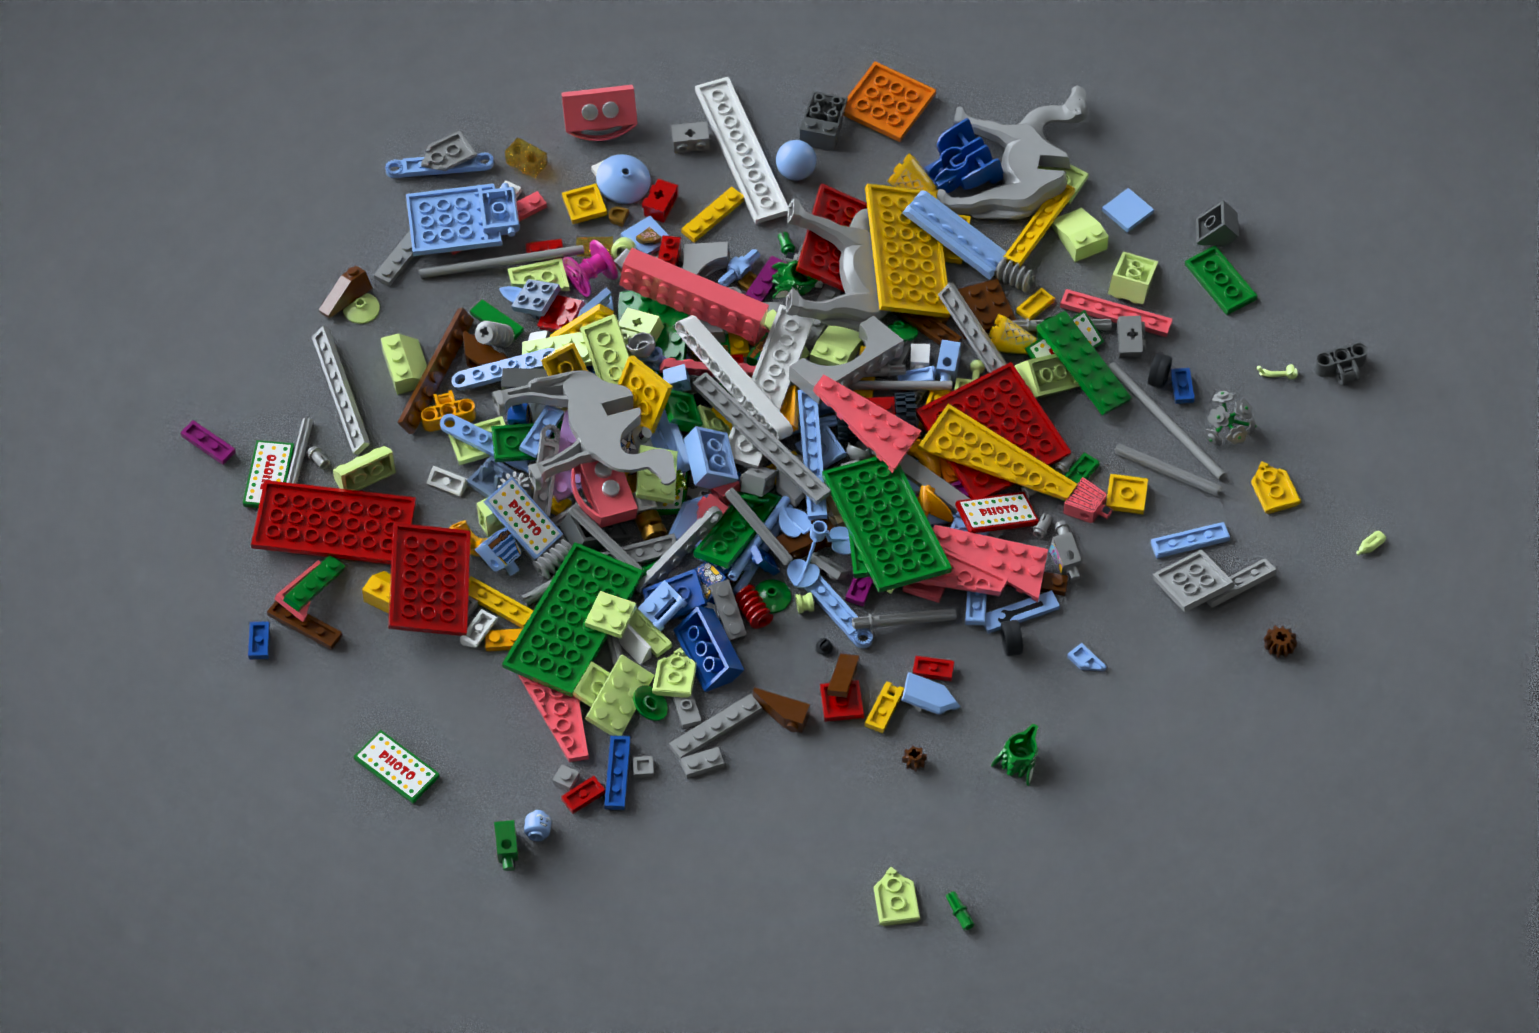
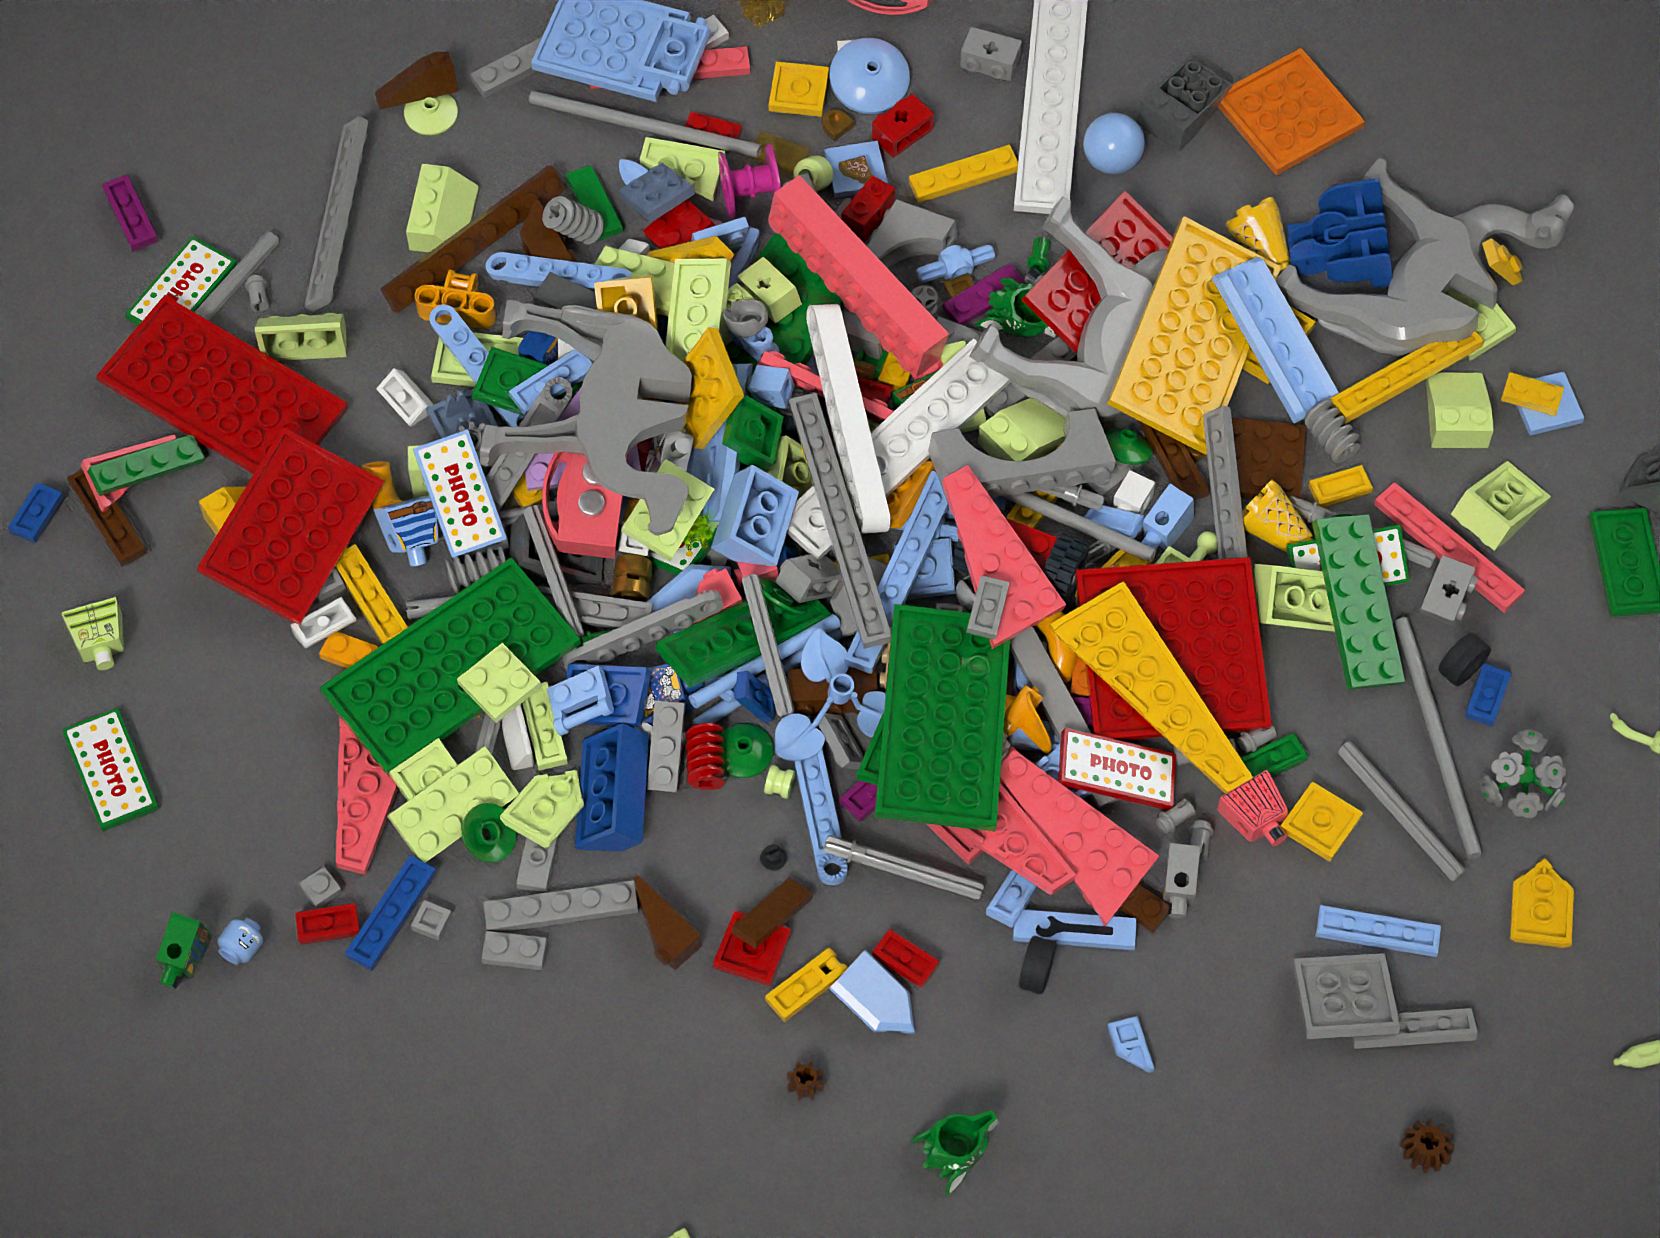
camera: 25 degrees right, 5 degrees up
(340, 692) = (97, 631): none -> yellowish green torso
(880, 448) = (988, 607): none -> light grey plate
(1061, 138) = (1503, 262): none -> yellow plate
(1117, 207) = (1532, 394): none -> yellow plate

